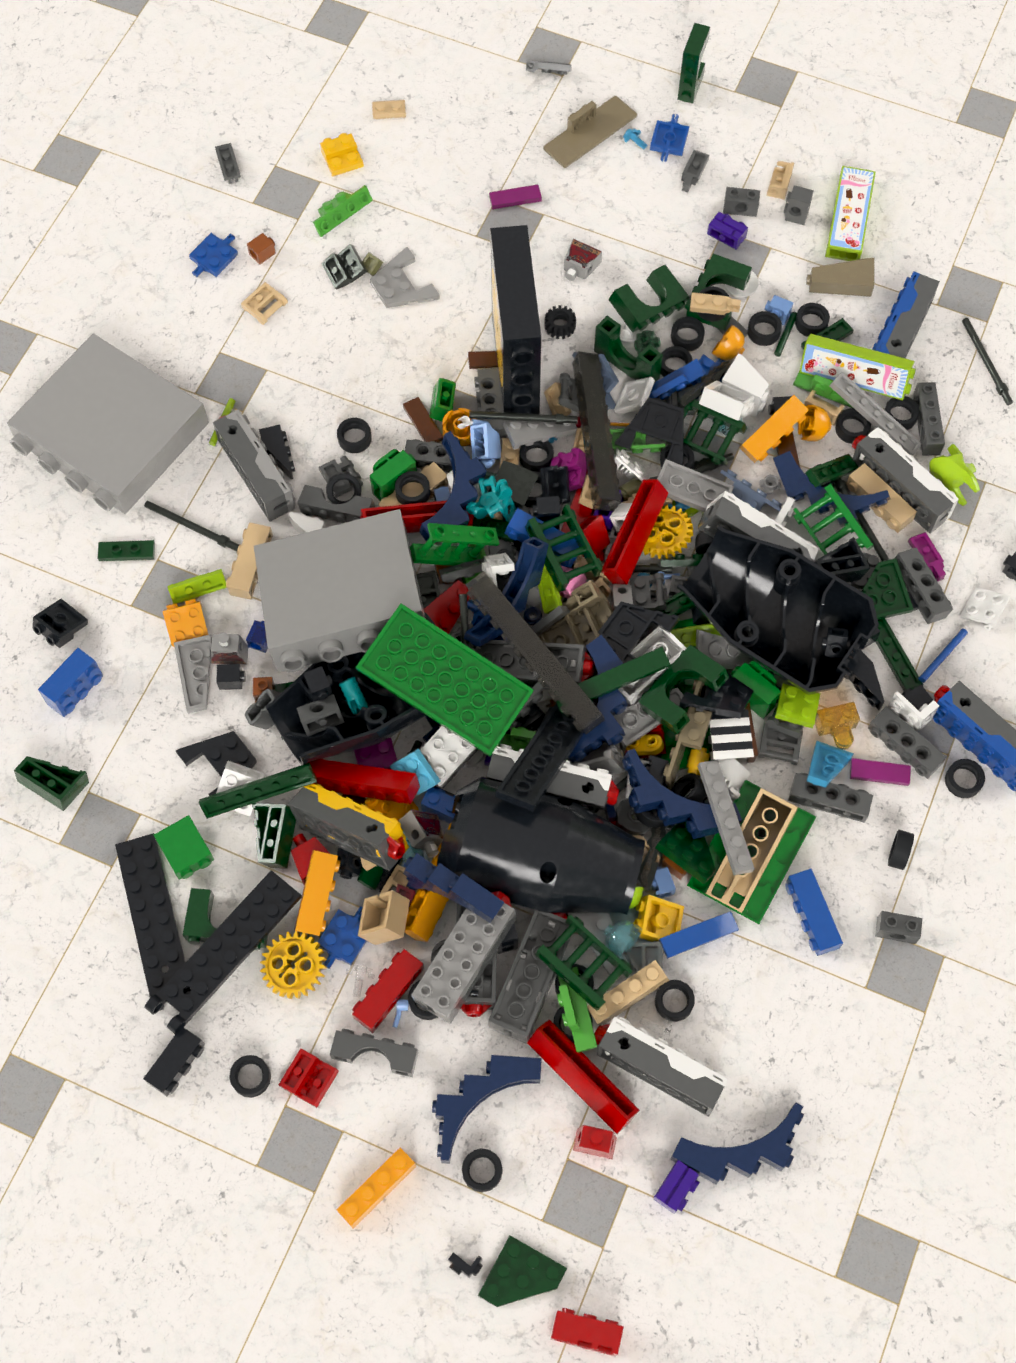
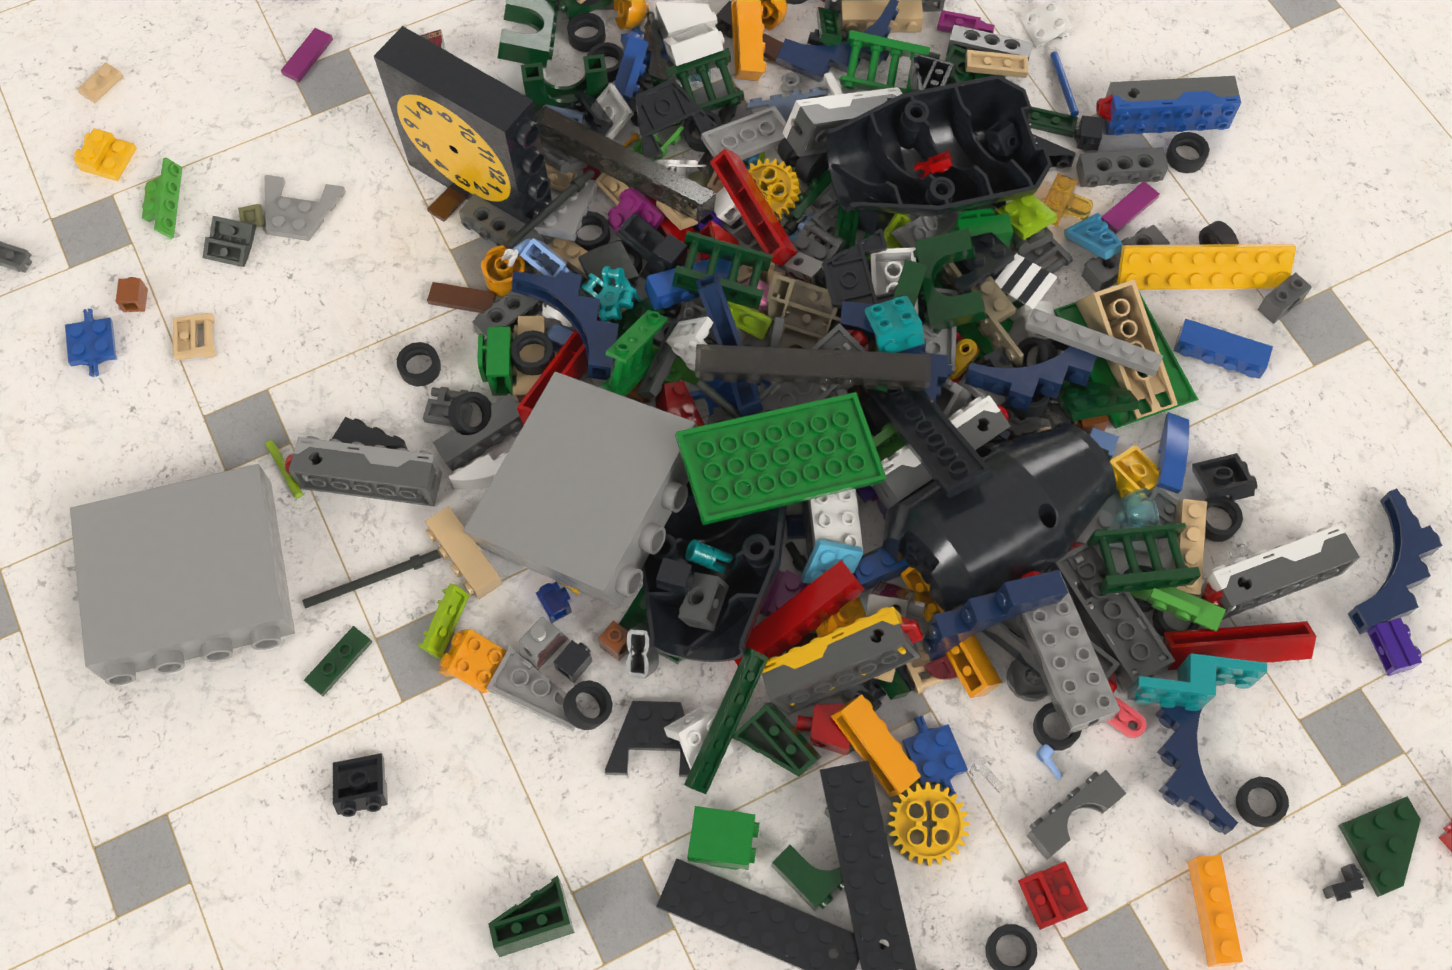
camera: 50 degrees left, 0 degrees up
(71, 682) = (442, 819): blue brick -> none
(193, 706) = (601, 695): none -> black tyre
(383, 917) = (954, 704): tan piece -> none
(388, 990) = (1024, 755): red brick -> none
(442, 399) = (459, 263): green brick -> none
(468, 1037) = (1126, 716): none -> coral plate
(521, 1060) = (1196, 682): none -> teal bracket
(595, 1141) = (1309, 680): red torso -> none
(606, 677) = (895, 325): none -> teal bracket
(624, 386) = (594, 113): none -> black hinge
(646, 338) = (568, 66): clear green brick -> none
(697, 756) = (1014, 328): yellow brick -> none
(707, 982) = (1225, 477): none -> black plate
(770, 615) = (937, 163): none -> red plate
(869, 853) = (1206, 266): none -> yellow plate
(906, 597) = (996, 63): none -> tan plate
(915, 718) = (1102, 140): white bracket -> none

